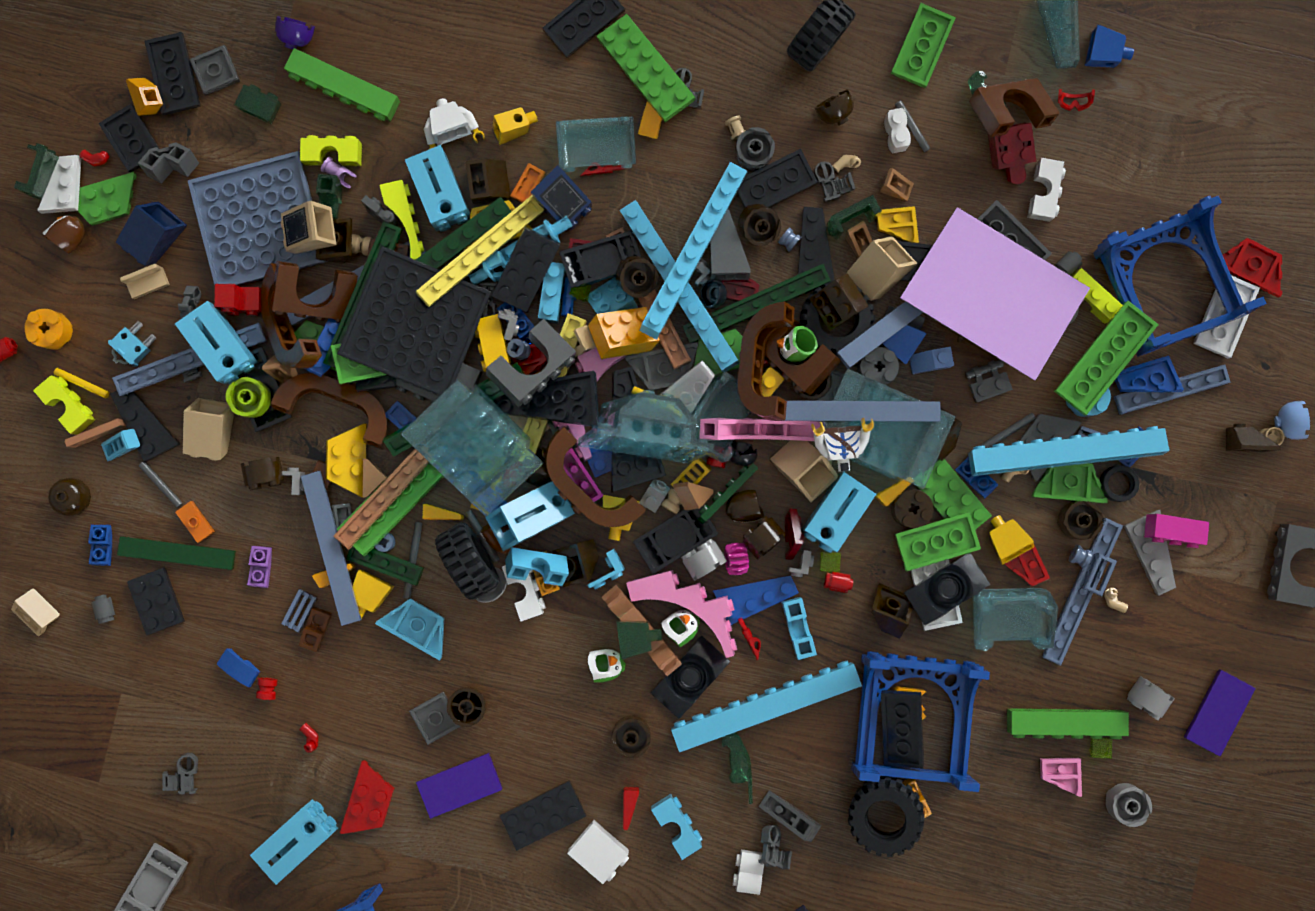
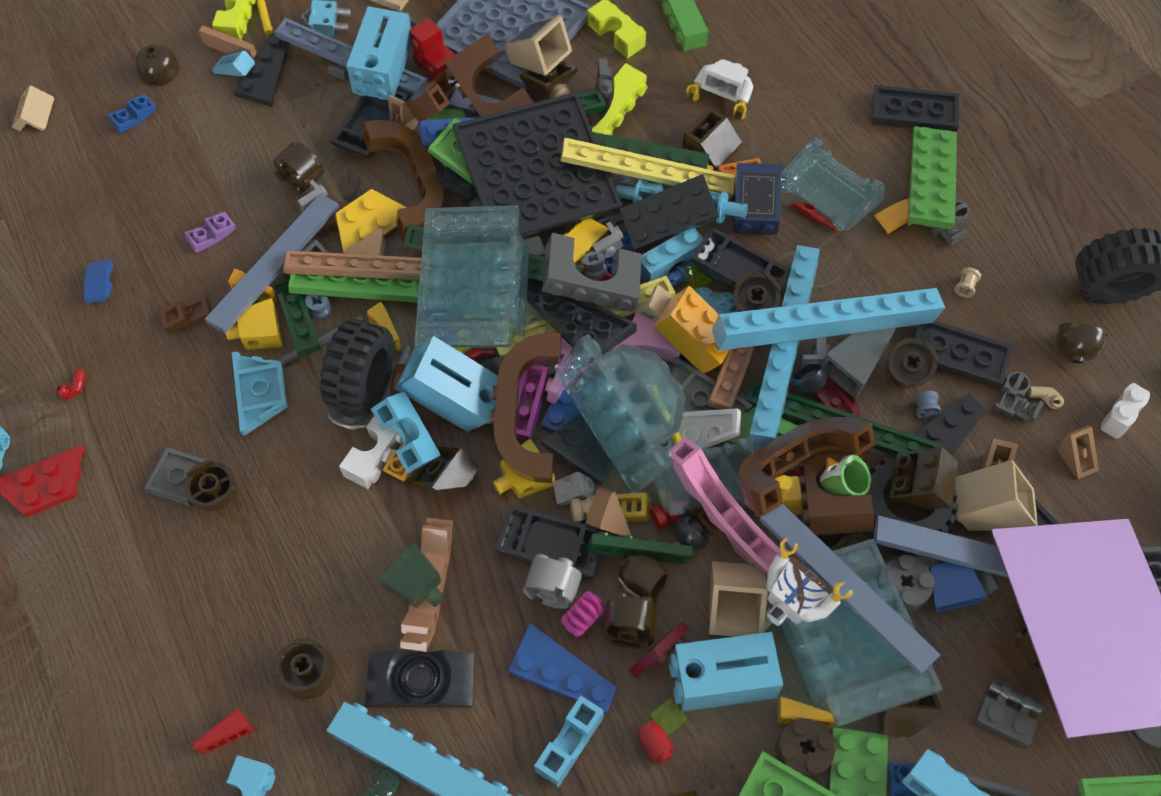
camera: 50 degrees right, 25 degrees down
(103, 609) = (73, 150): dark grey brick -> none
(155, 601) = (112, 183): black plate -> none
(160, 484) = (219, 130): dark grey bar -> none
(176, 553) = (171, 168): dark green tile -> none
(195, 521) = (211, 160): orange plate -> none
(207, 429) = (301, 108): tan slope -> none
(259, 401) = (353, 107): lime brick -> none
(266, 688) = (95, 315): red wheel -> none
(291, 625) = (194, 286): sand blue tile -> none
(330, 192) = (585, 46): clear green brick -> none
(333, 168) = (605, 43): lavender piece -> none
(438, 189) = (666, 114): medium azure brick -> none
(459, 785) = (122, 551): dark purple tile -> none
(512, 124) = (776, 121): yellow torso -> none
(543, 815) = (149, 656): black plate -> none
(598, 852) = (147, 744): white brick -> none
(605, 665) = (363, 582): piece -> none
(613, 561) = (465, 509): medium azure bracket -> none
(681, 626) = (464, 619): piece -> none
(713, 612) = (507, 634): bright pink arch -> none
(744, 151) = (969, 307): dark grey brick -> none
(748, 636) = (515, 698): red hand -> none
(805, 562) = (644, 689): light grey bracket -> none
(867, 206) = (1002, 425): clear green panel -> none
(899, 223) = (1051, 486): yellow wing -> none
(914, 129) = (1143, 429): dark grey bar -> none
(931, 360) = (967, 634): medium blue slope -> none

